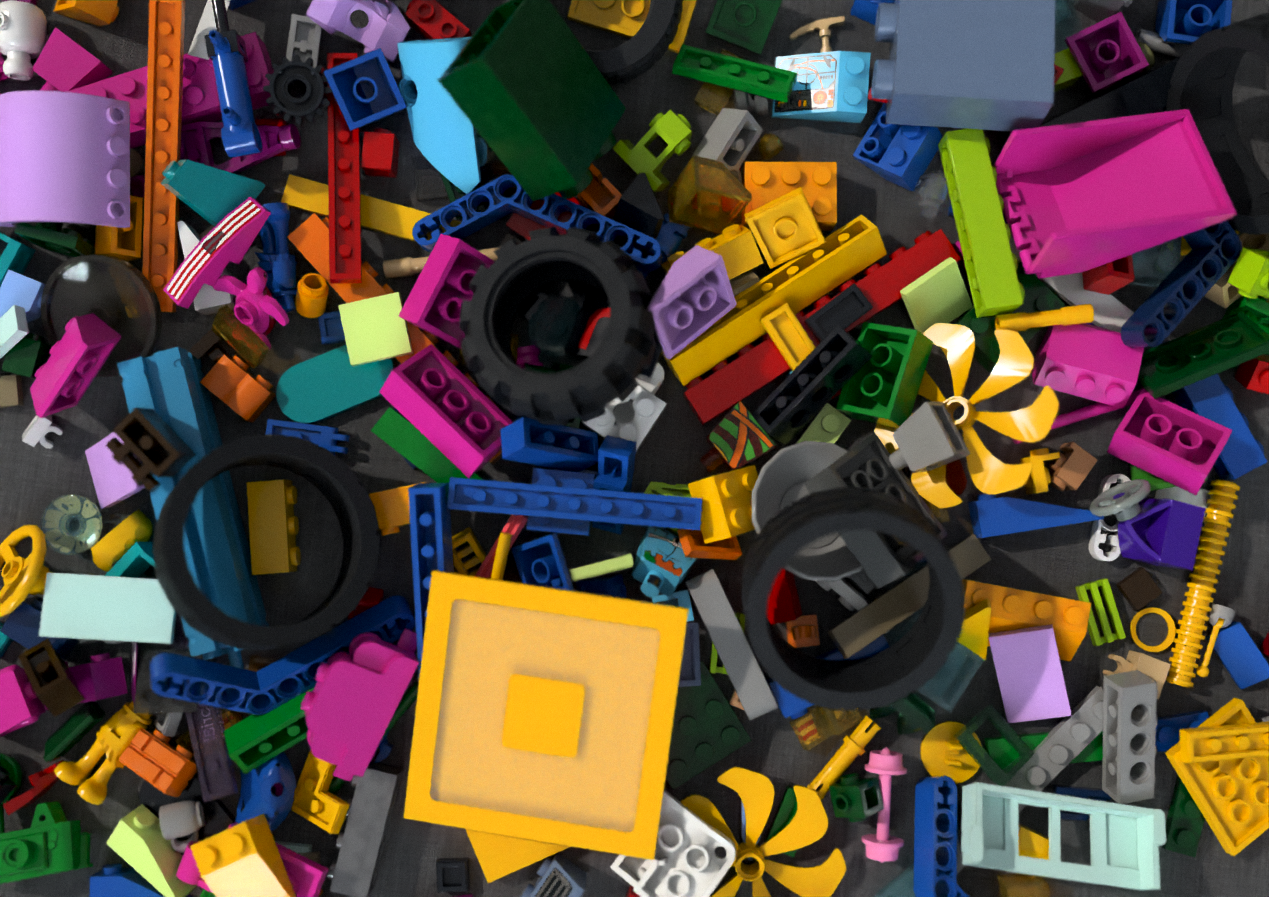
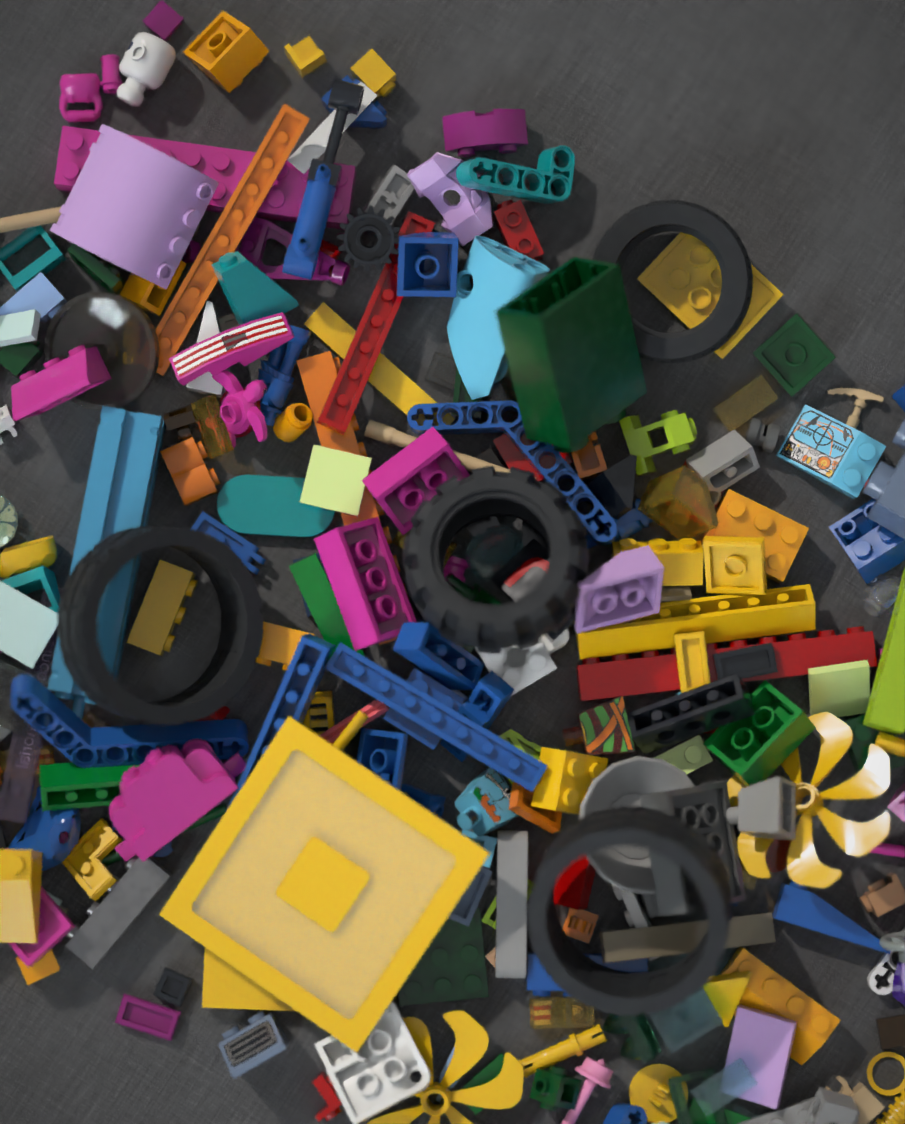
camera: 20 degrees right, 0 degrees up
(68, 65) = (172, 114): dark pink torso -> none
(111, 480) = (54, 492): lavender tile -> none
(153, 443) = (105, 492): dark brown brick -> none
(331, 328) = (297, 457): blue tile -> none
(380, 153) = (412, 322): red brick -> none
(602, 567) = (432, 783): yellowish green tile -> none
(734, 73) = (759, 404): green tile -> none
(770, 146) = (760, 482): clear yellow hinge -> none
(1012, 719) = (723, 1087): none -> clear light blue tile
(1039, 477) = (851, 888): yellow bracket -> none
(1111, 609) = (849, 1037): lime tile -> none

